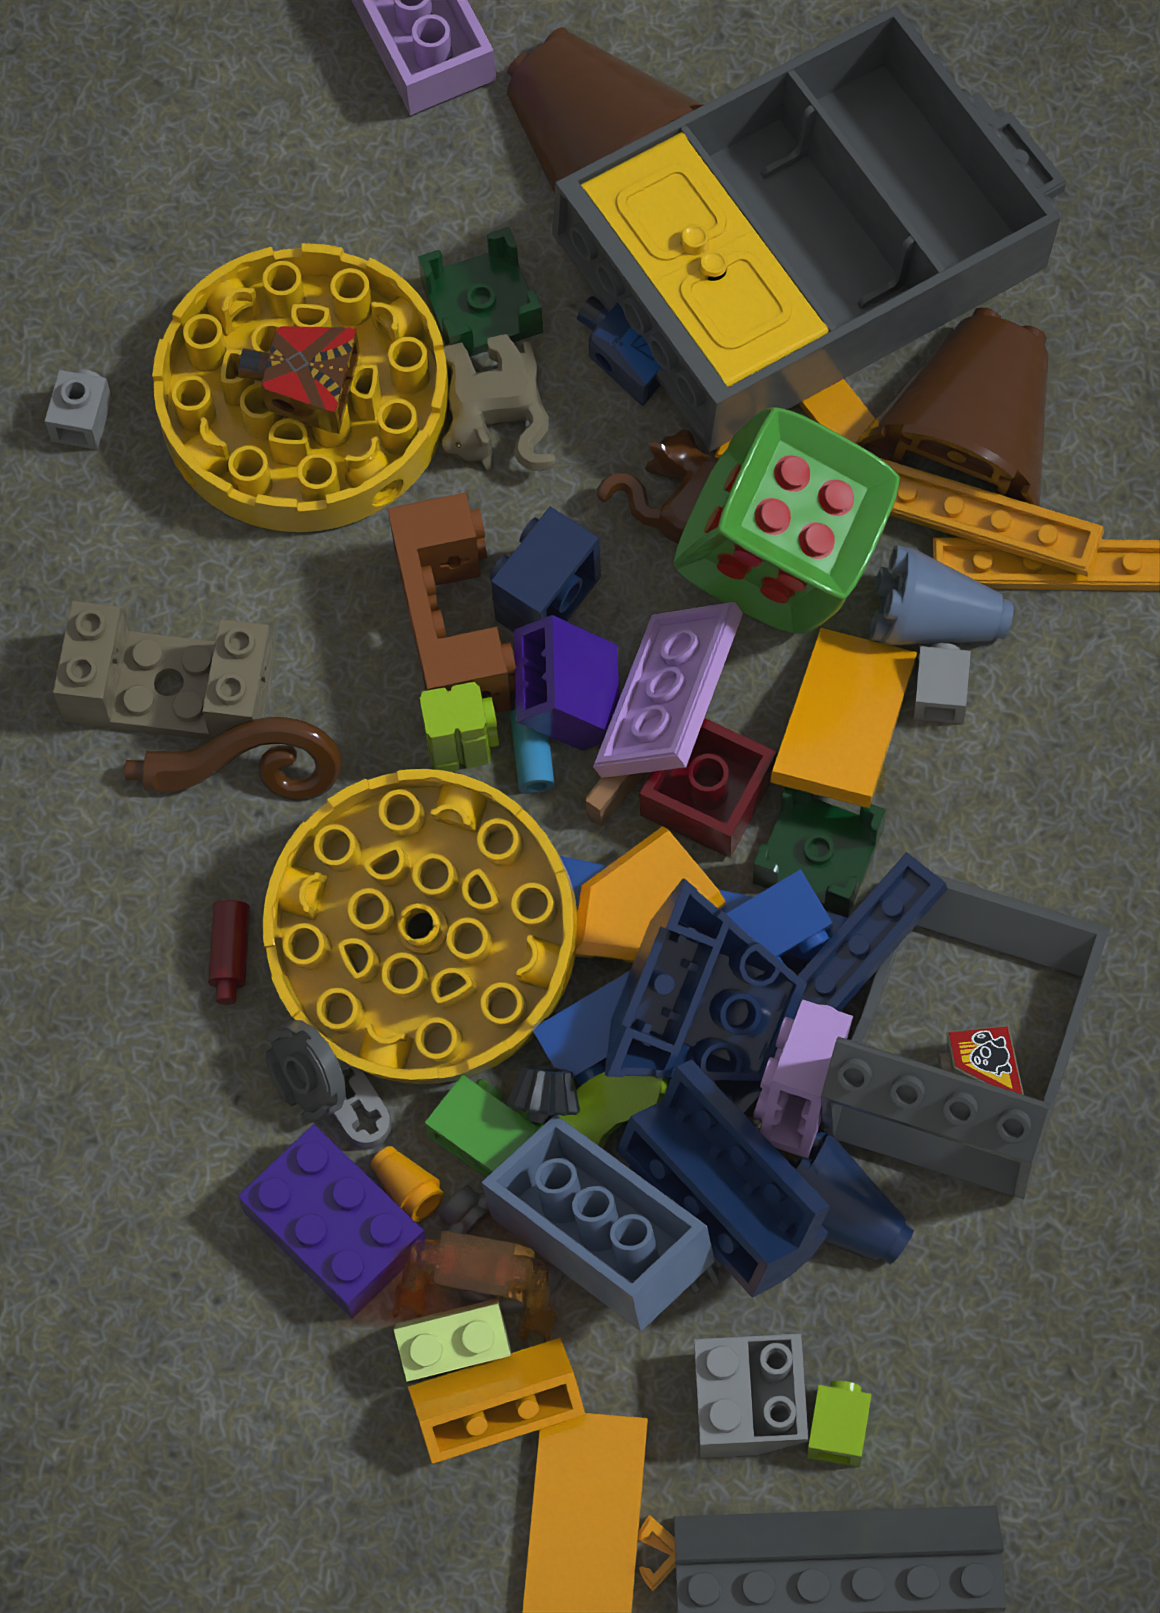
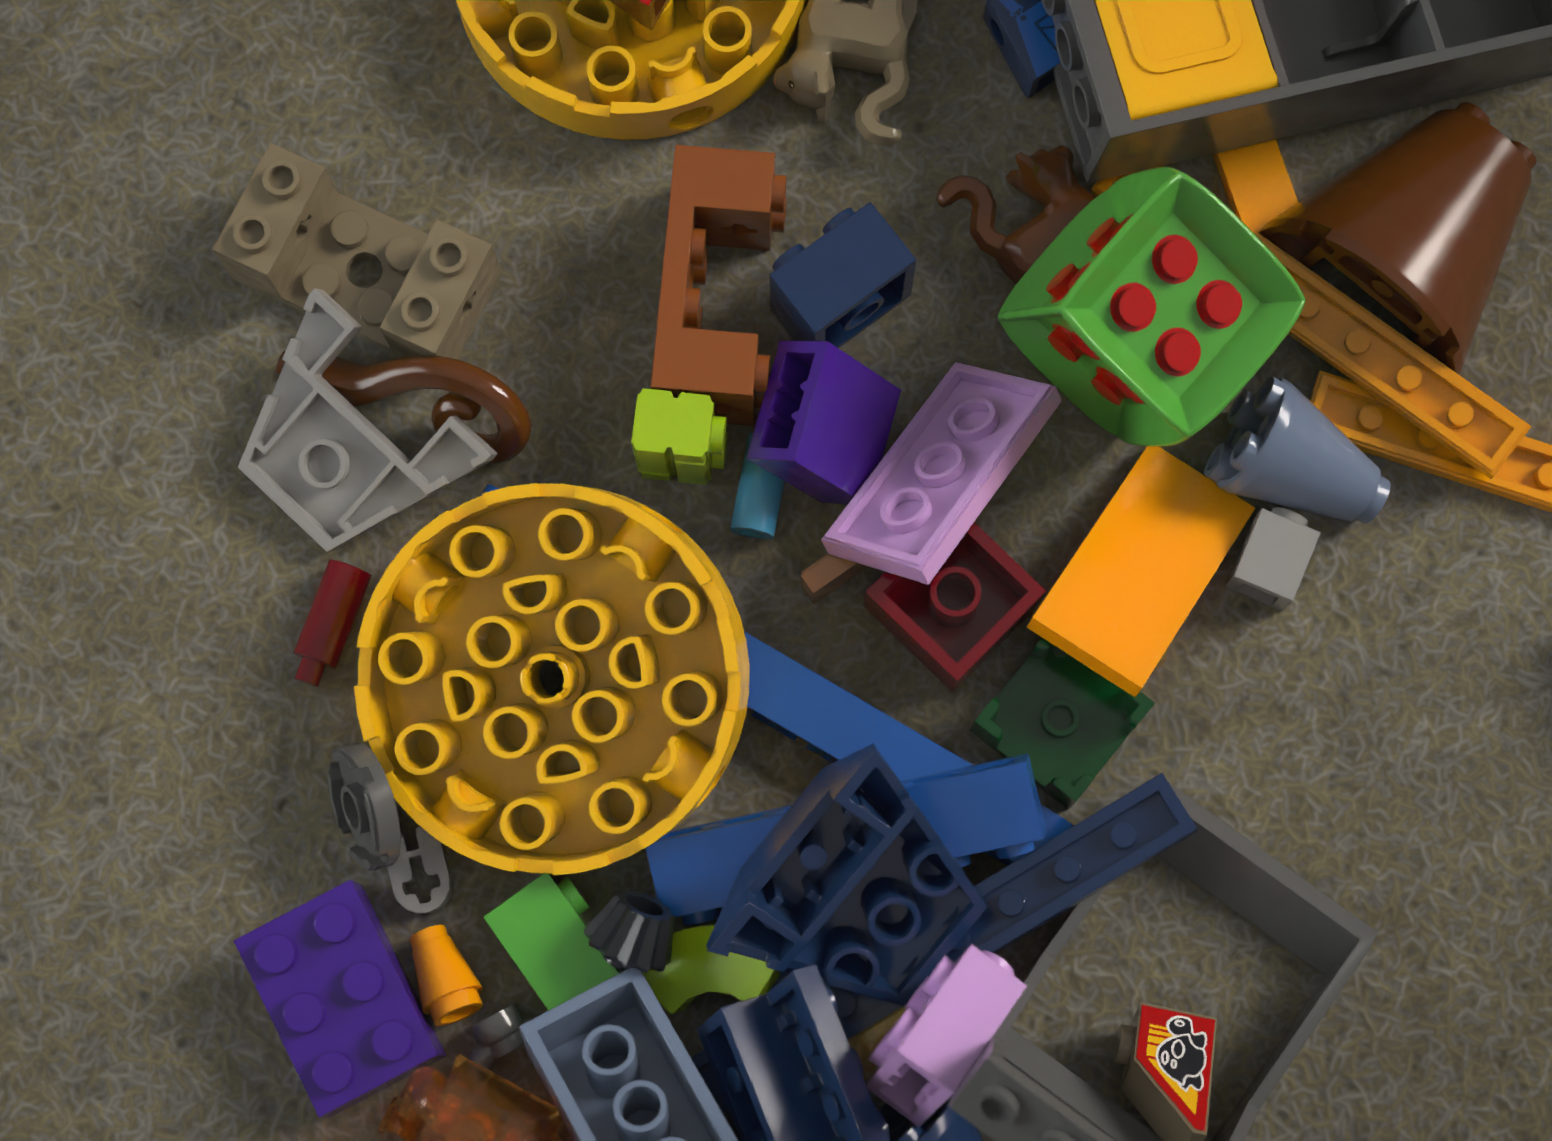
camera: 15 degrees right, 10 degrees up
(189, 828) = (327, 458): none -> light grey wing
(630, 891) = (824, 715): light orange tile -> none

